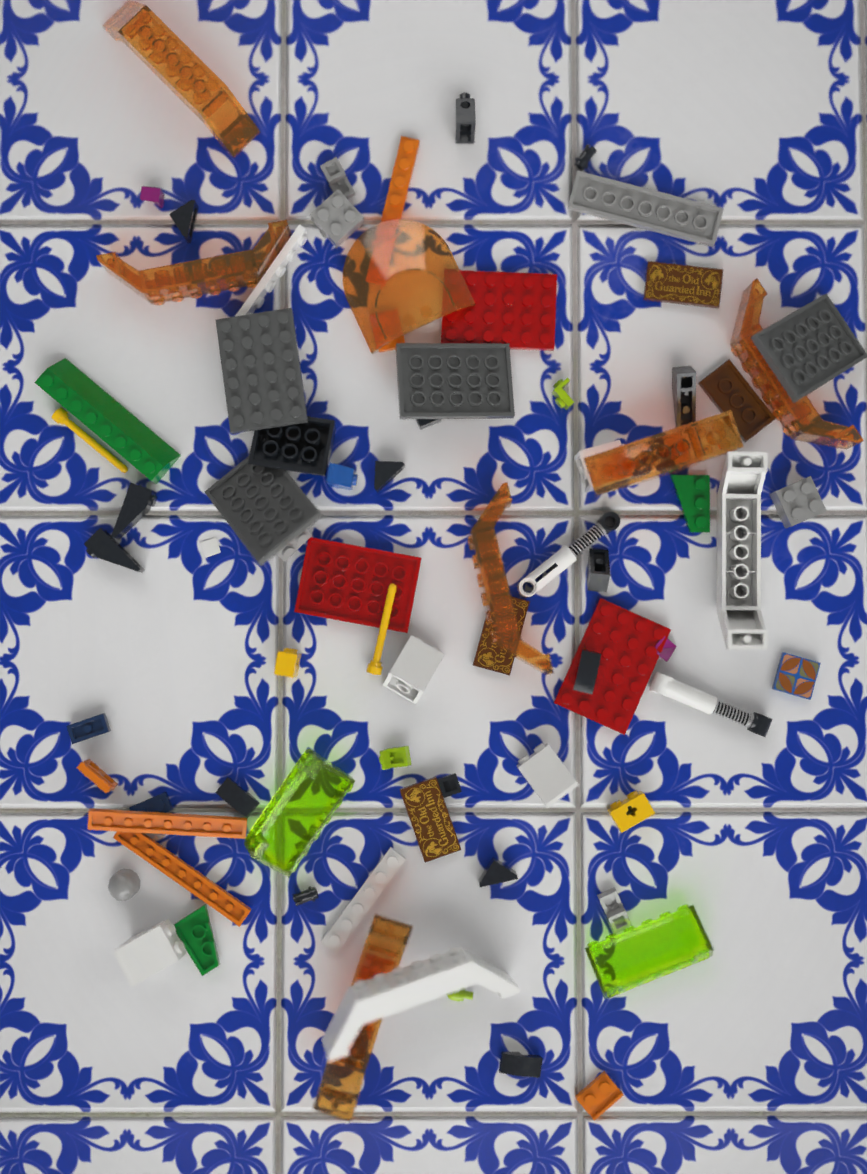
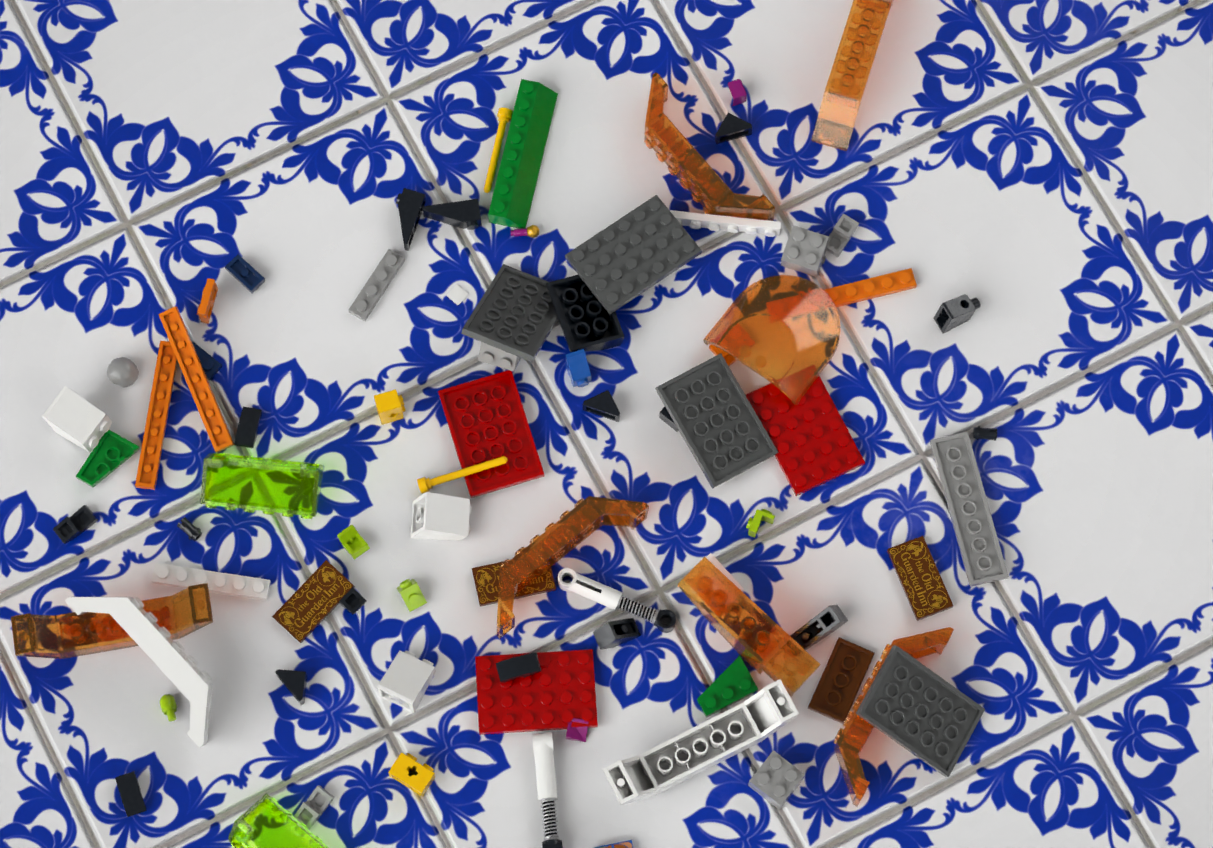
camera: 65 degrees right, 15 degrees down
(163, 615) = (376, 285): none -> light grey plate
(186, 450) = (531, 231): none -> piece
(246, 996) = (75, 525): none -> black slope
(468, 730) = (411, 594): none -> lime bracket

